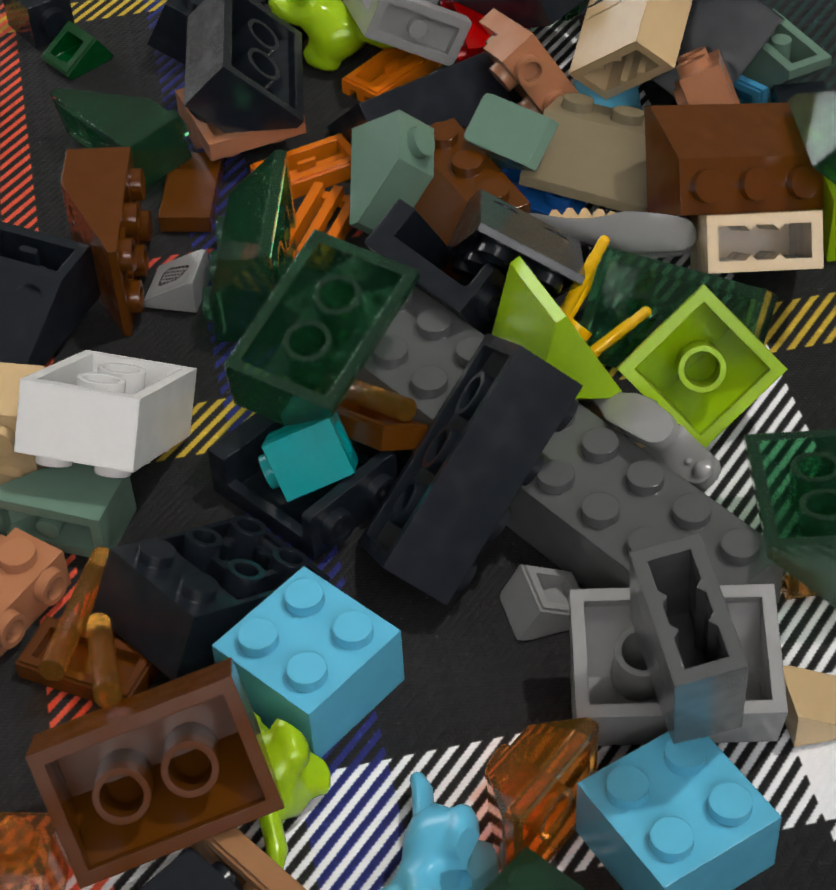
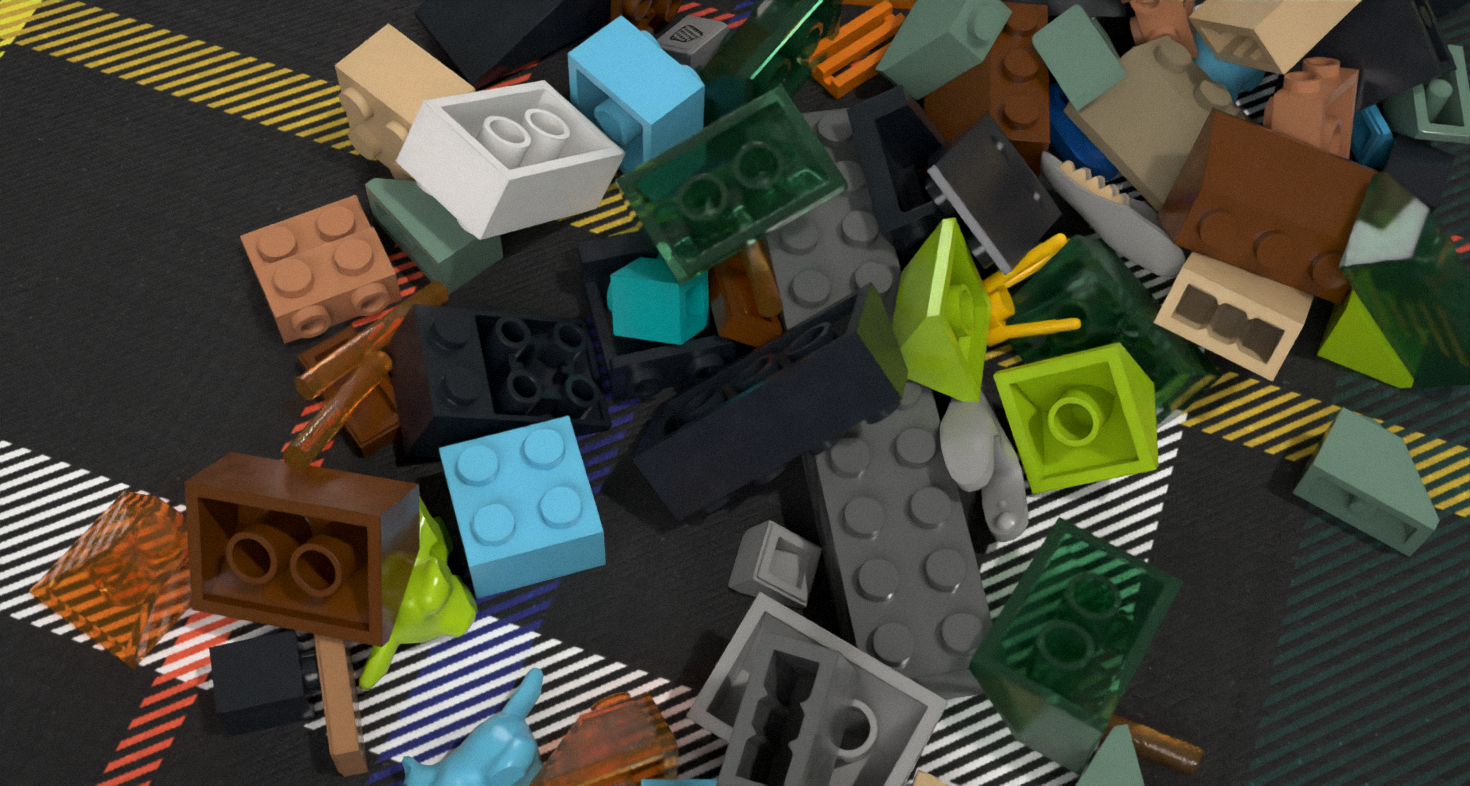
camera: 25 degrees right, 15 degrees up
(178, 320) = (635, 91): none -> medium azure brick

